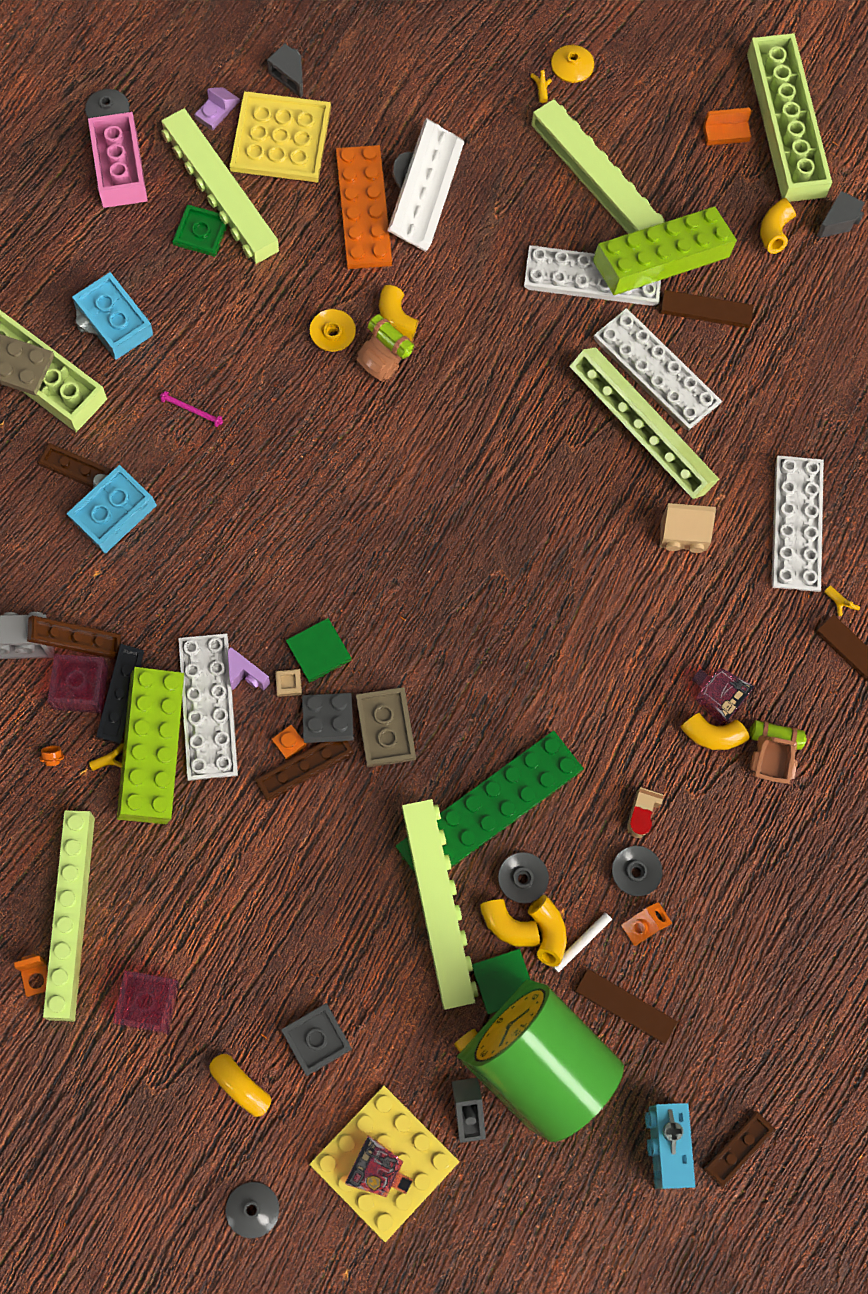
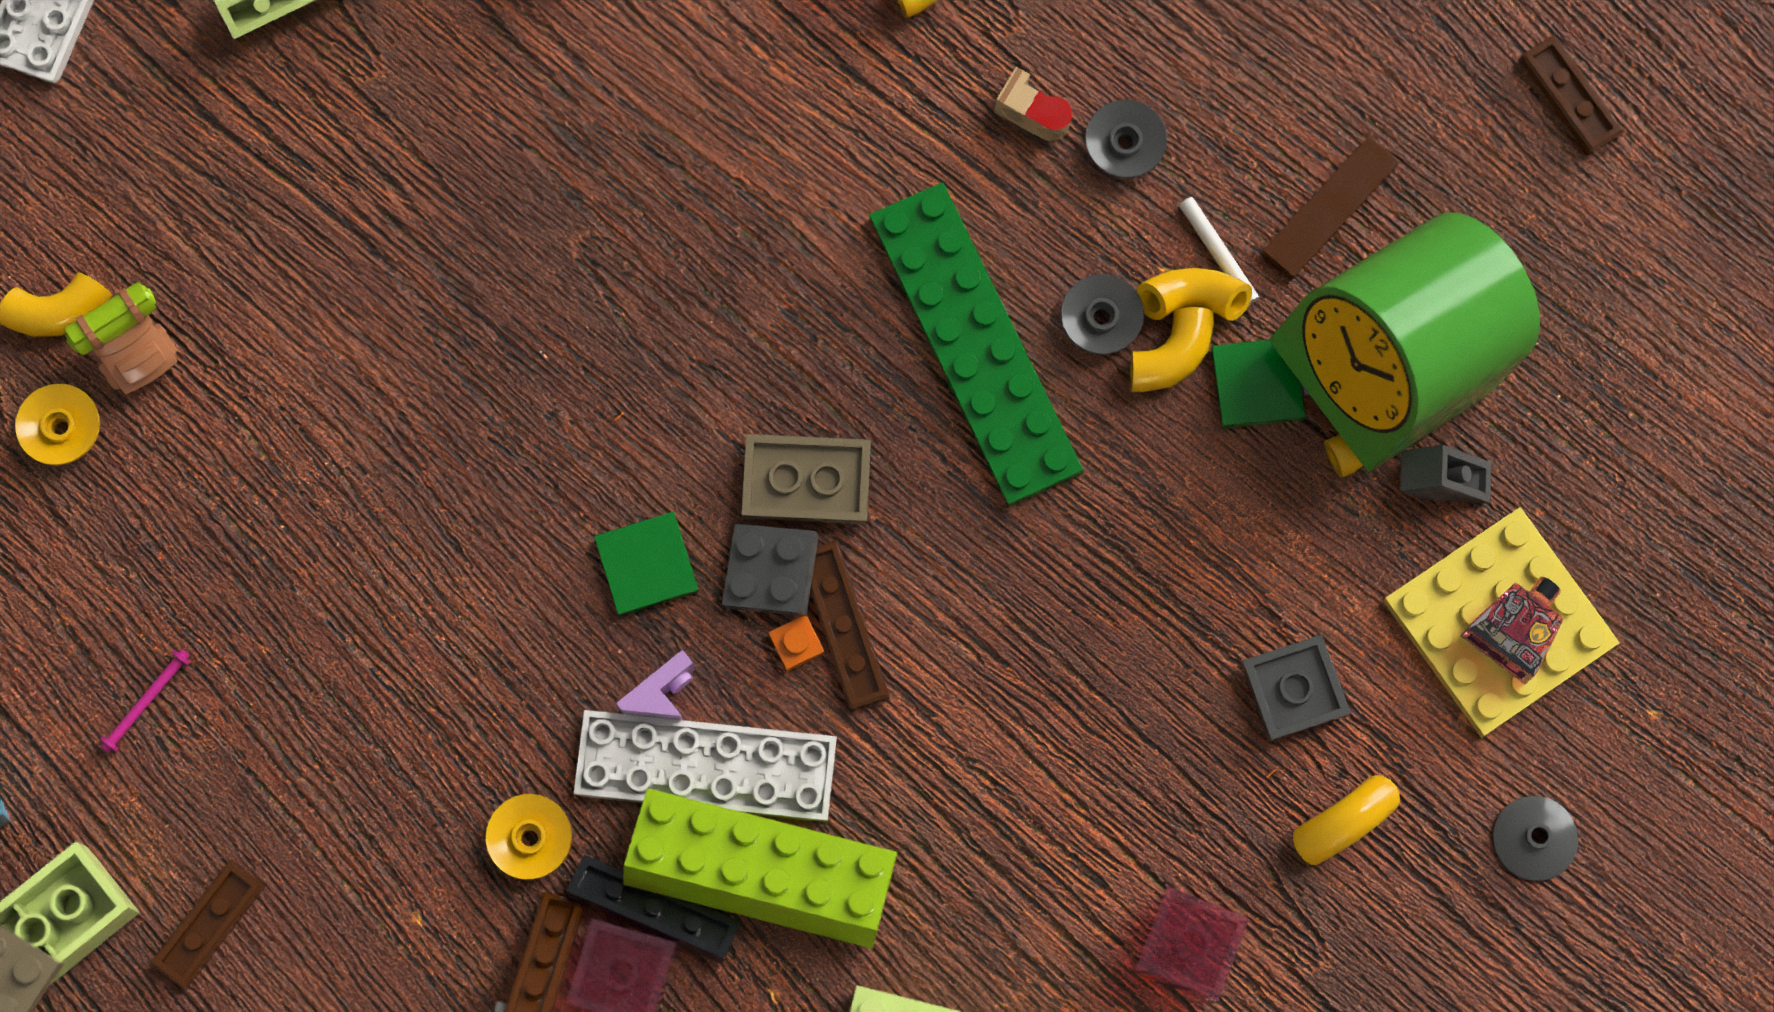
camera: 75 degrees left, 5 degrees up
(108, 759) = (762, 948): yellow bar -> none
(111, 508) = (307, 867): medium azure piece -> none
(144, 609) = (516, 818): none -> yellow dish
(288, 683) = (692, 624): tan tile -> none
(438, 905) = (1121, 451): yellowish green brick -> none
(646, 924) = (1211, 146): orange bracket -> none
(670, 1145) = (1556, 186): medium azure piece -> none

